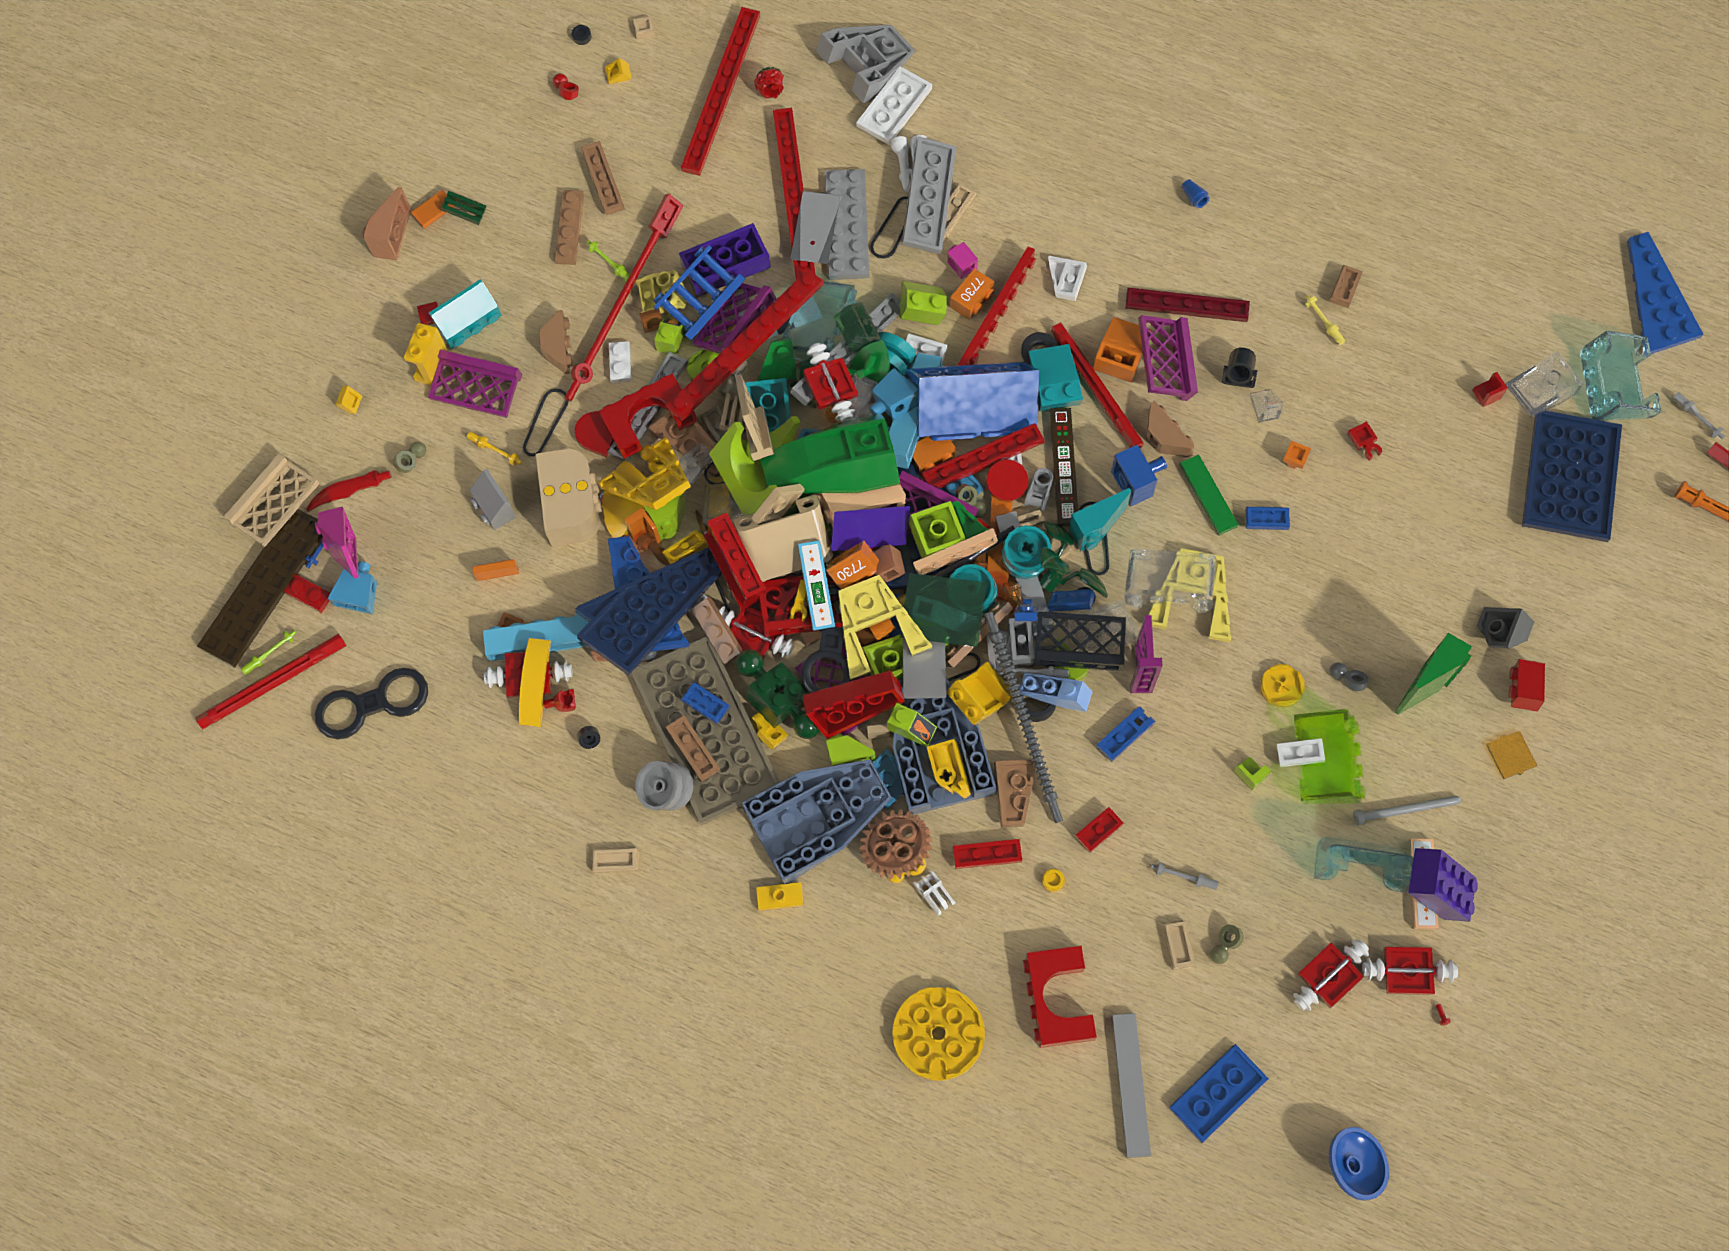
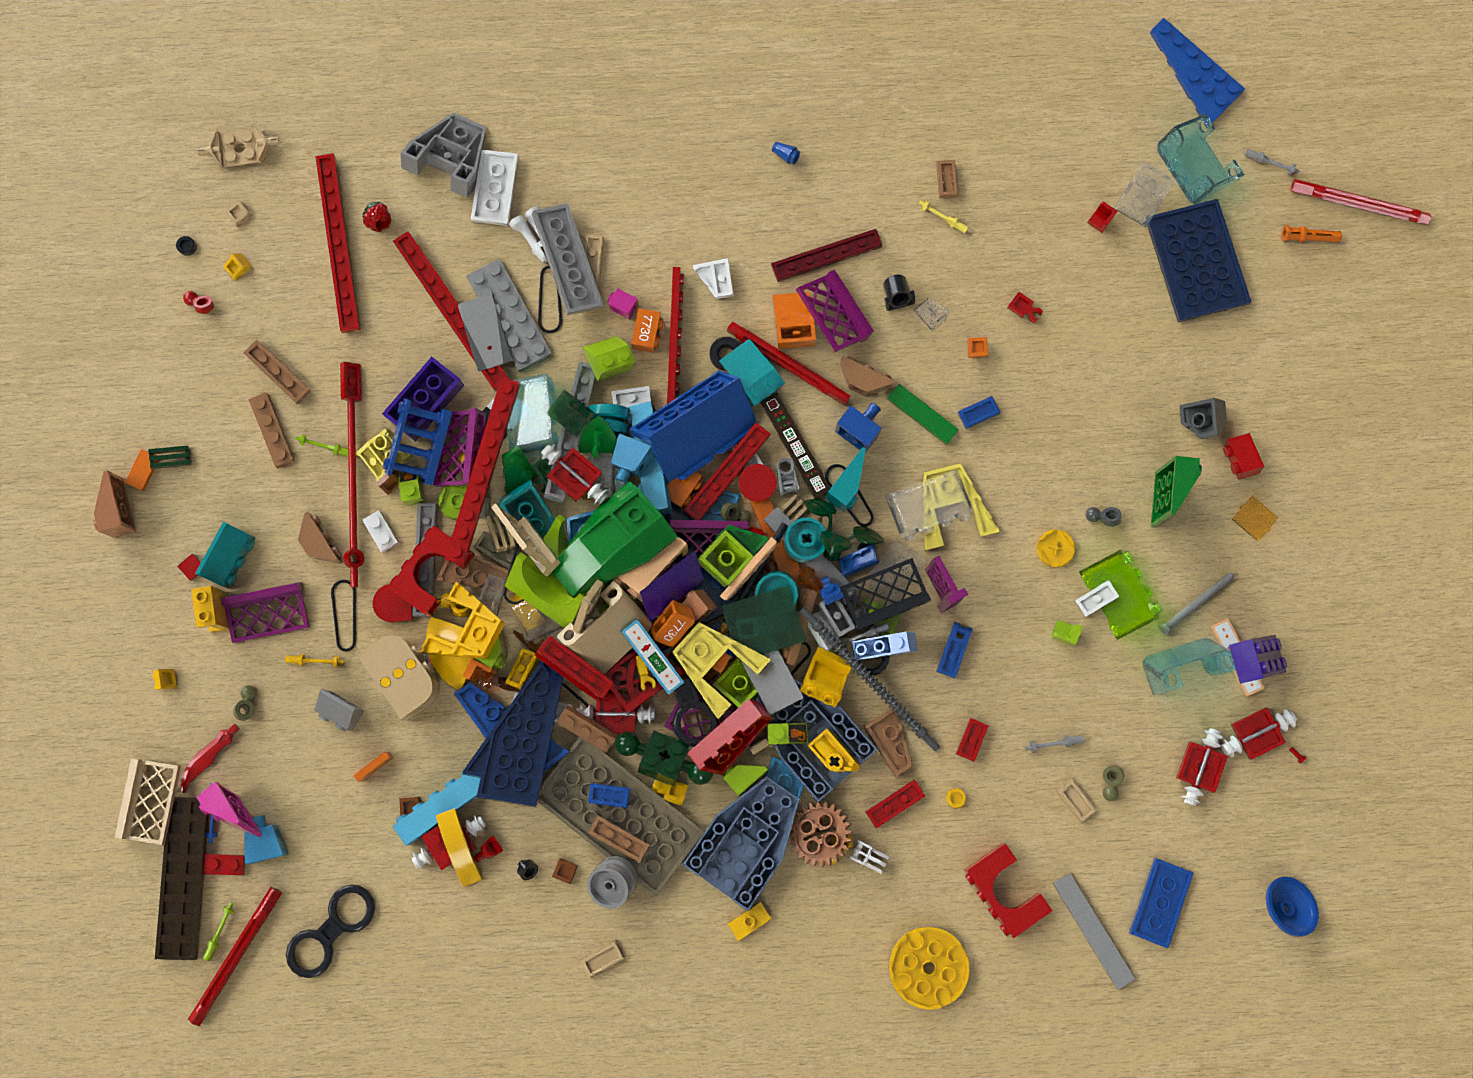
camera: 30 degrees left, 10 degrees up
(624, 758) = (565, 871): none -> dark orange tile

